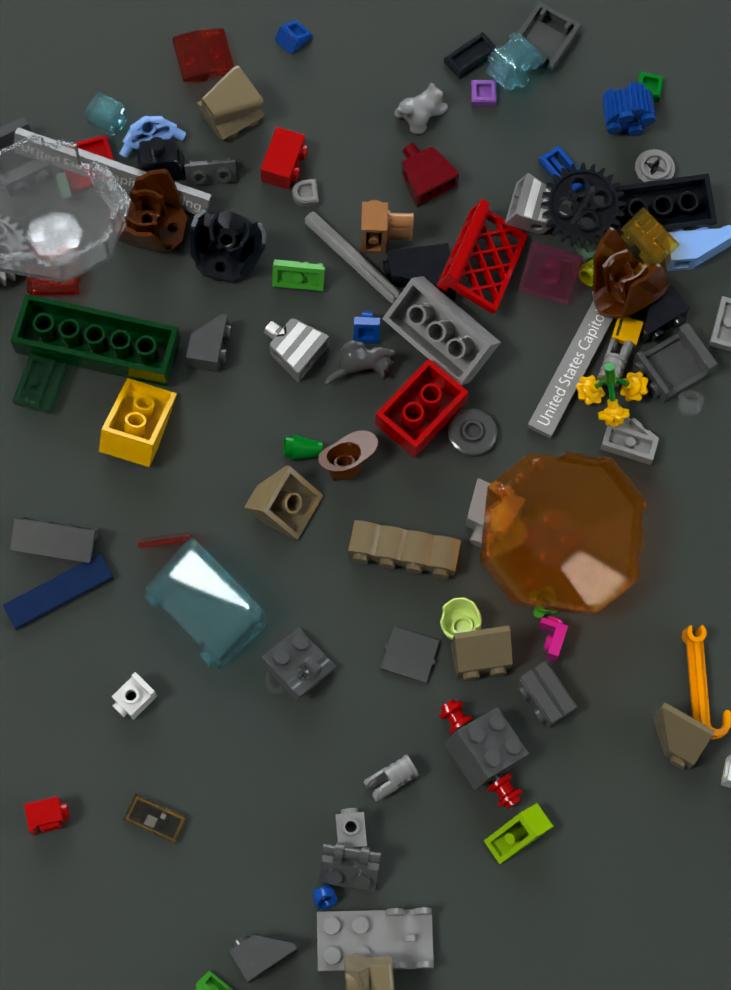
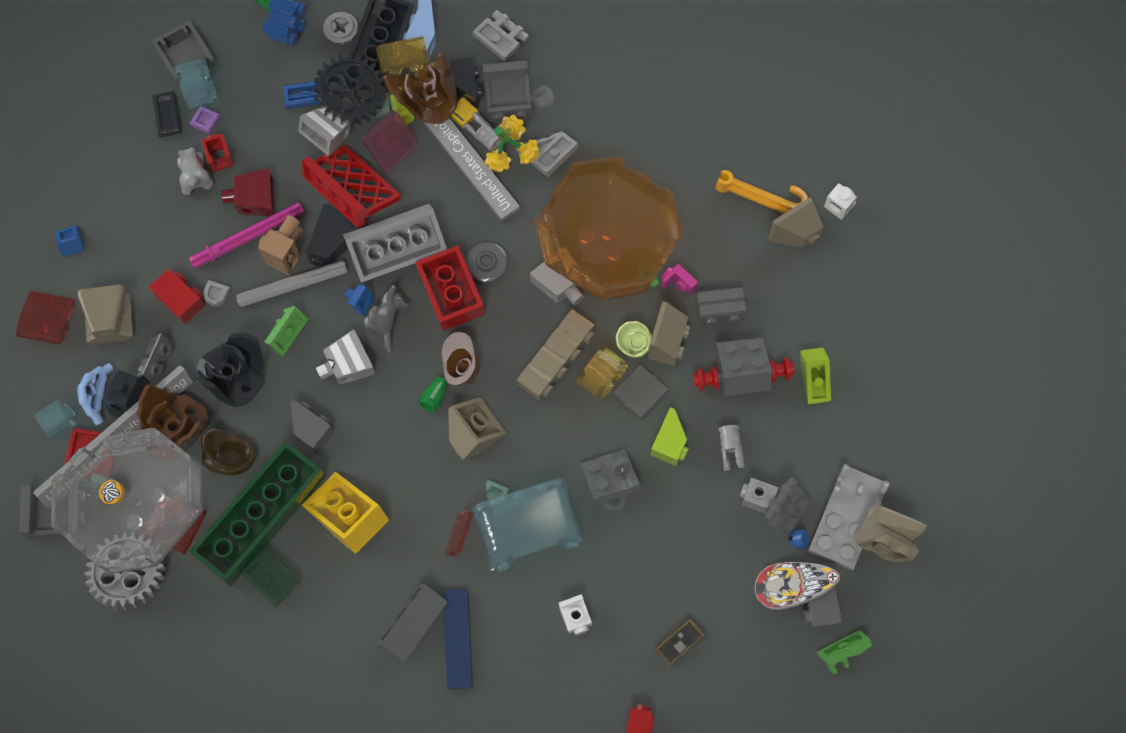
camera: 60 degrees left, 0 degrees up
(53, 197) = (112, 492): none -> tile
(145, 281) = (227, 452): none -> dark brown piece
(229, 558) = (495, 490): none -> sand green tile
(268, 911) = (793, 584): none -> shield
(368, 708) = (670, 440): none -> lime slope
(379, 189) = (245, 236): none -> dark pink axle
(405, 602) = (601, 371): none -> clear yellow brick
(454, 109) = (216, 143): none -> red window

